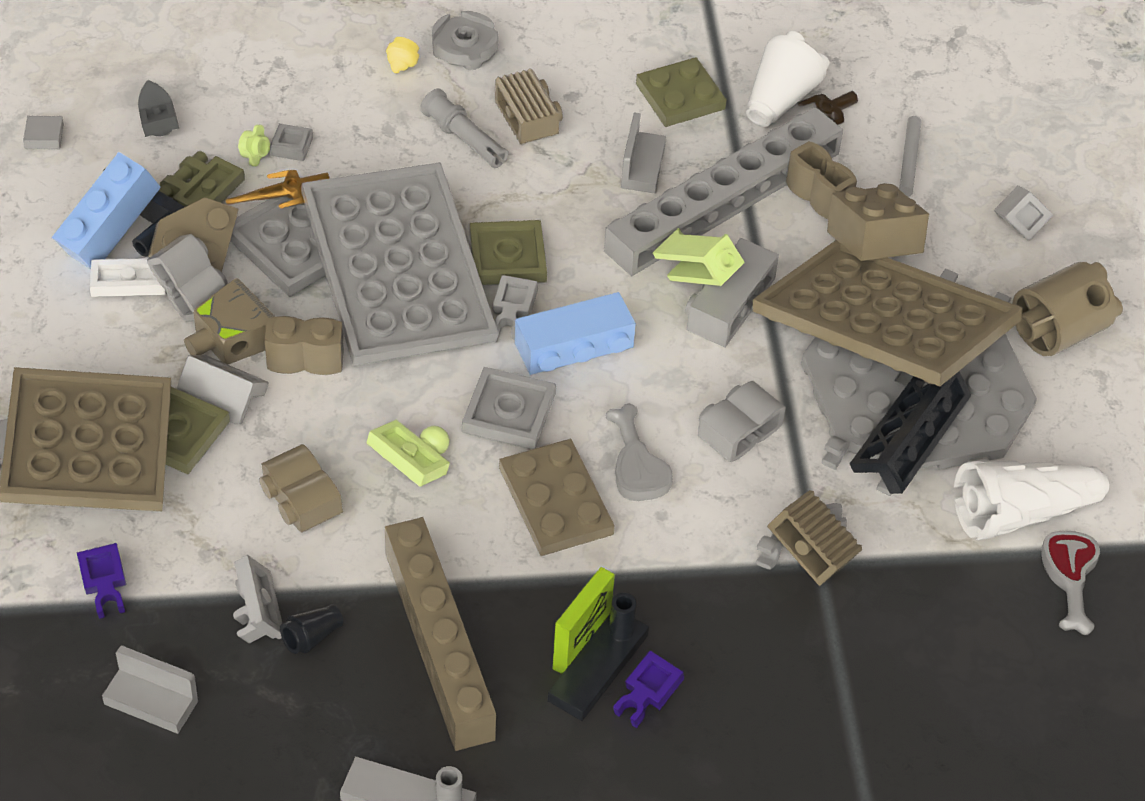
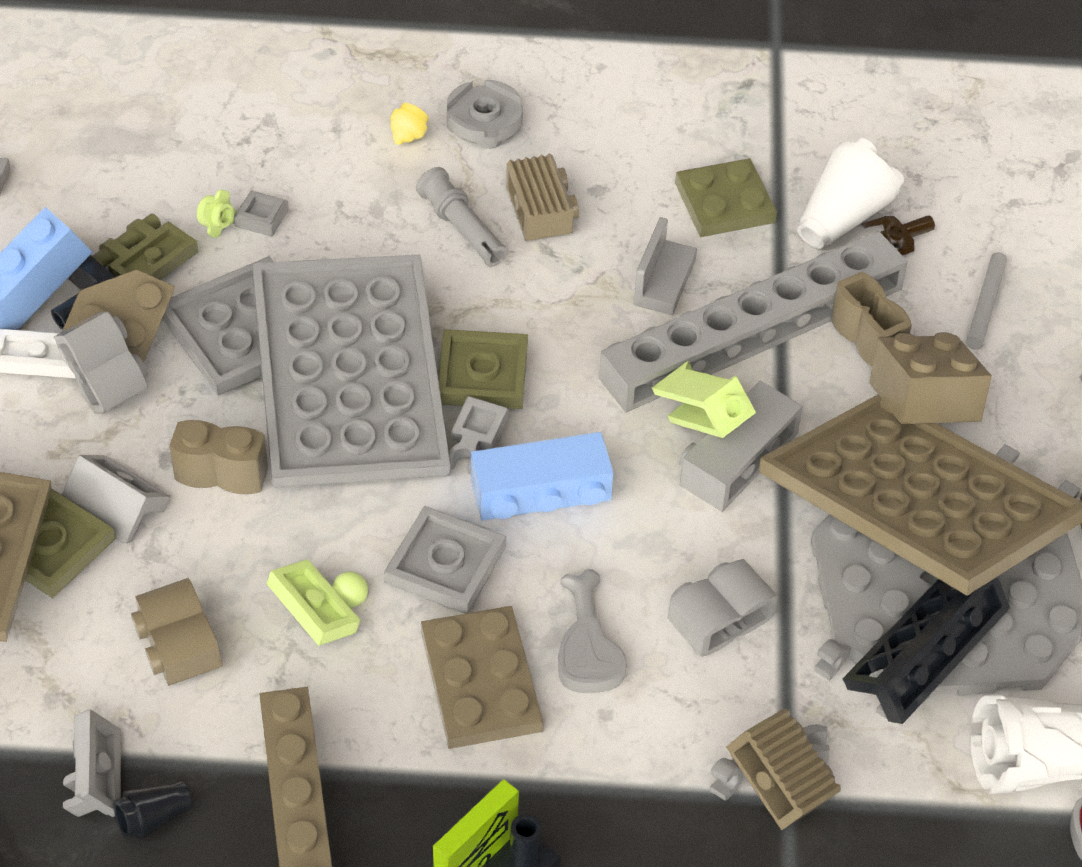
camera: 10 degrees right, 0 degrees up
(156, 110) = (114, 162): dark grey plate -> none
(229, 324) = (137, 422): dark tan torso -> none
(290, 188) = (239, 267): pearl gold piece -> none

